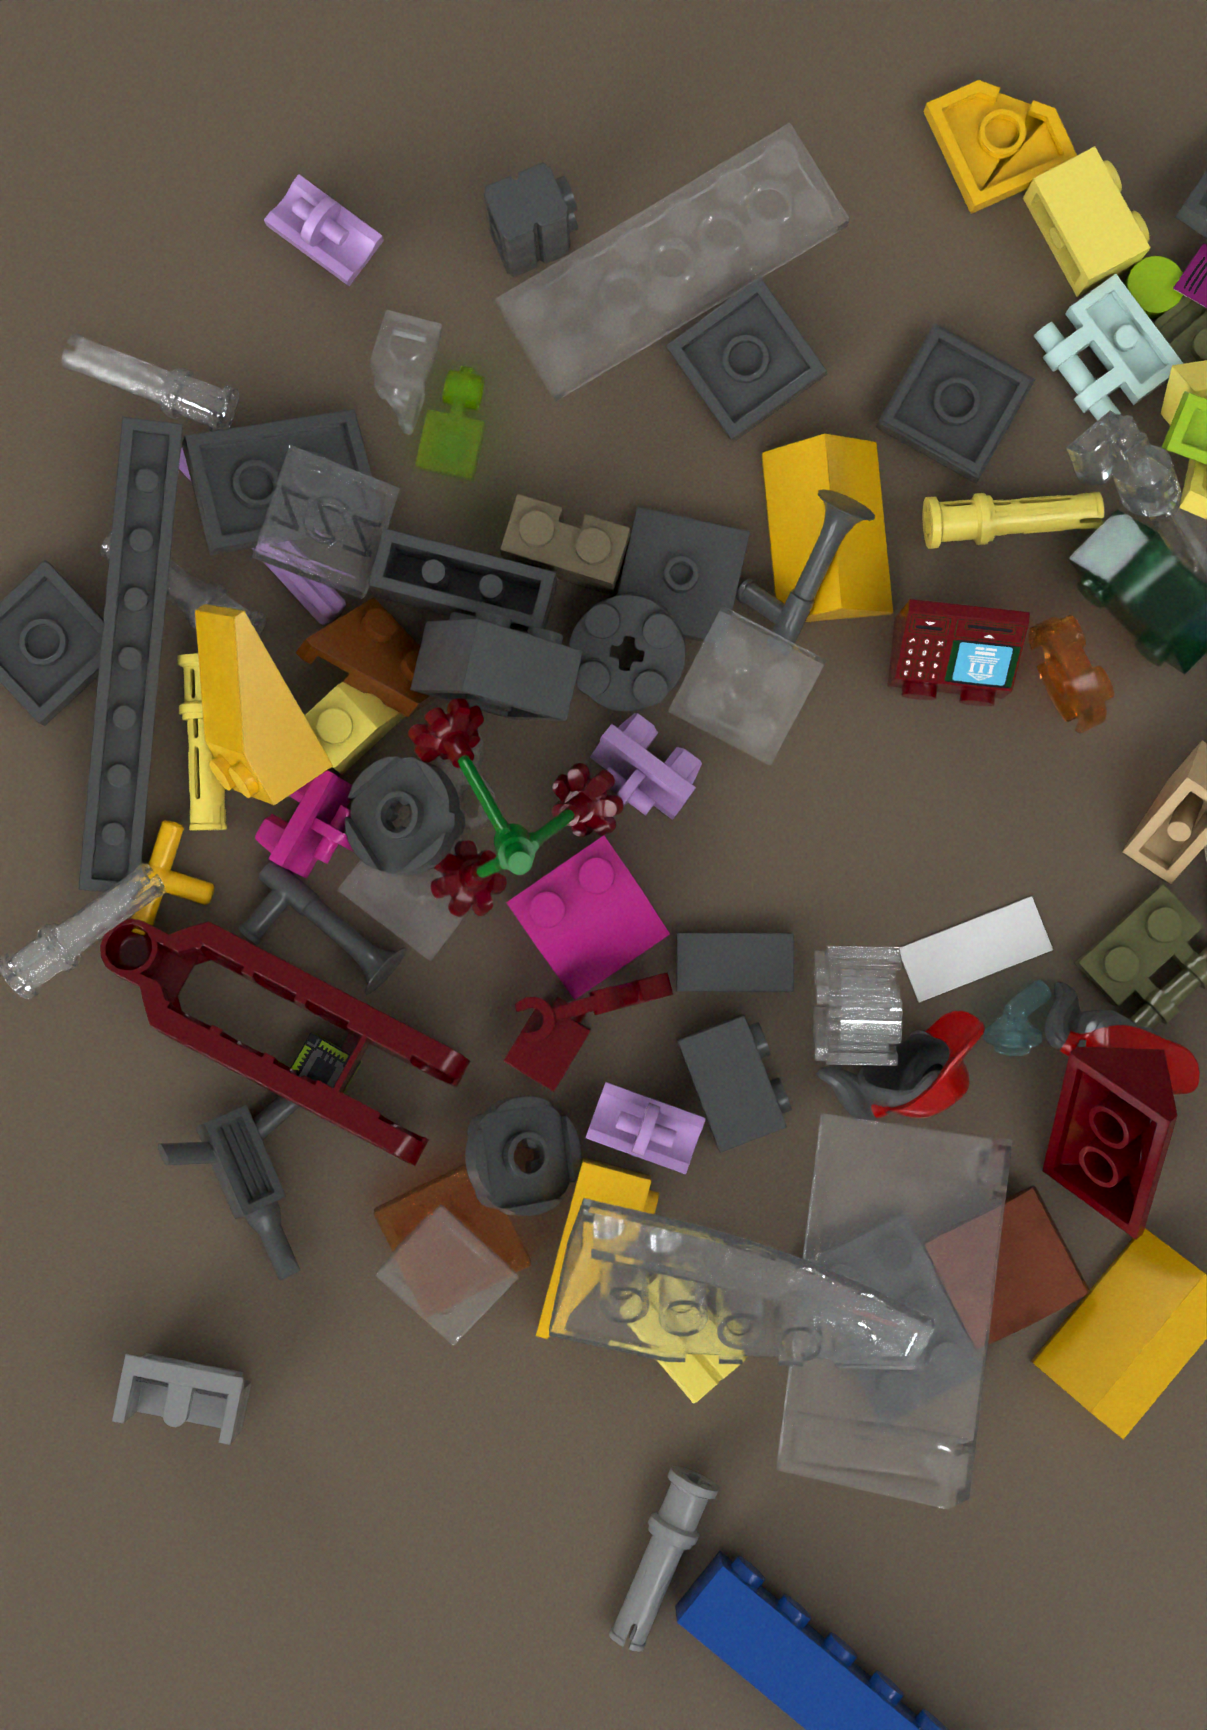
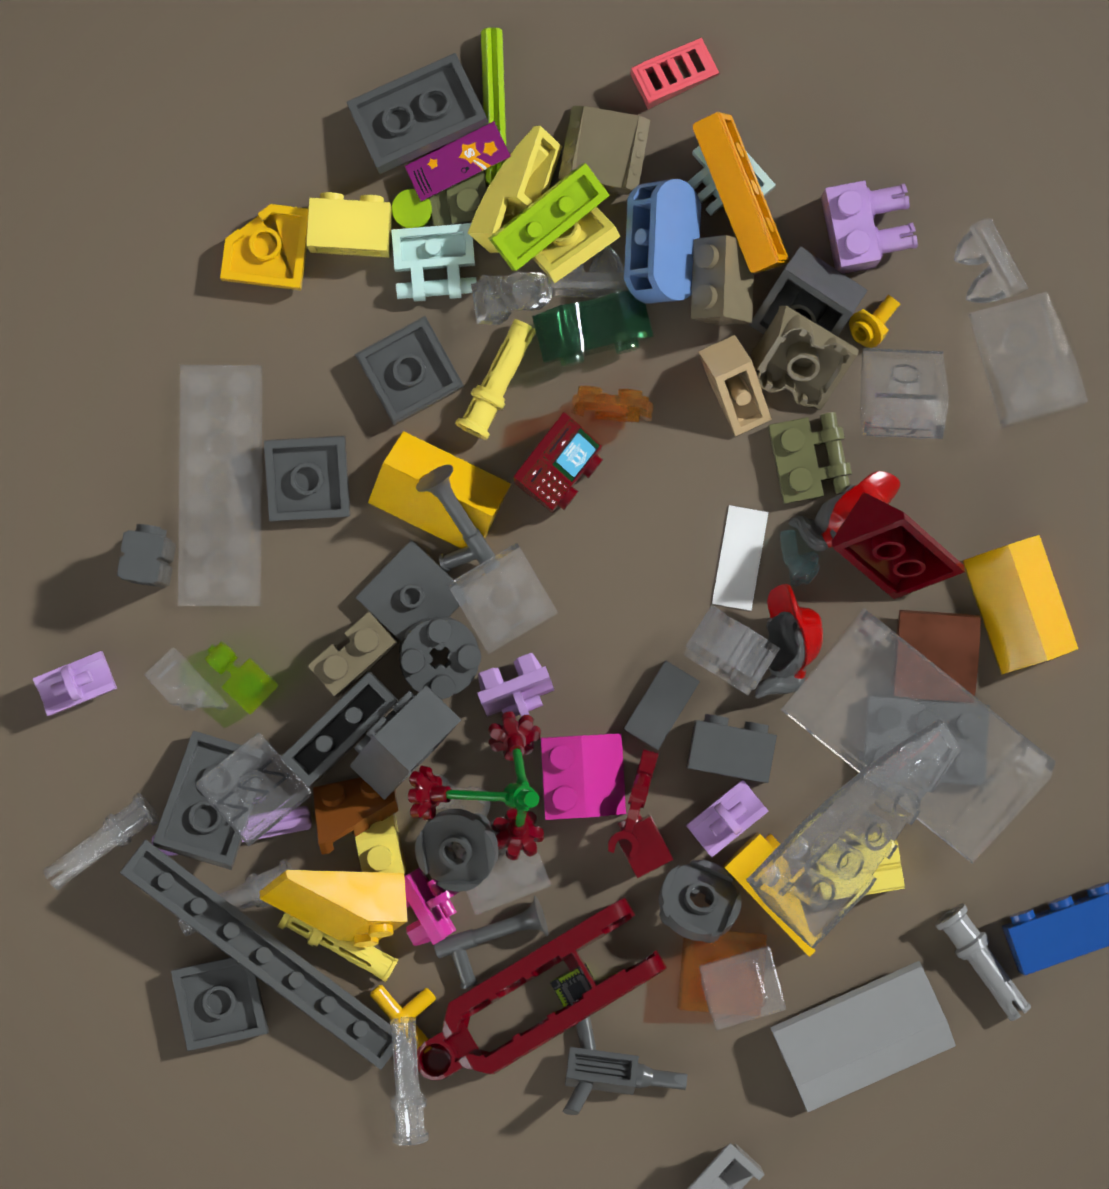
camera: 60 degrees left, 0 degrees up
(479, 1462) = (863, 1036): none -> light grey slope

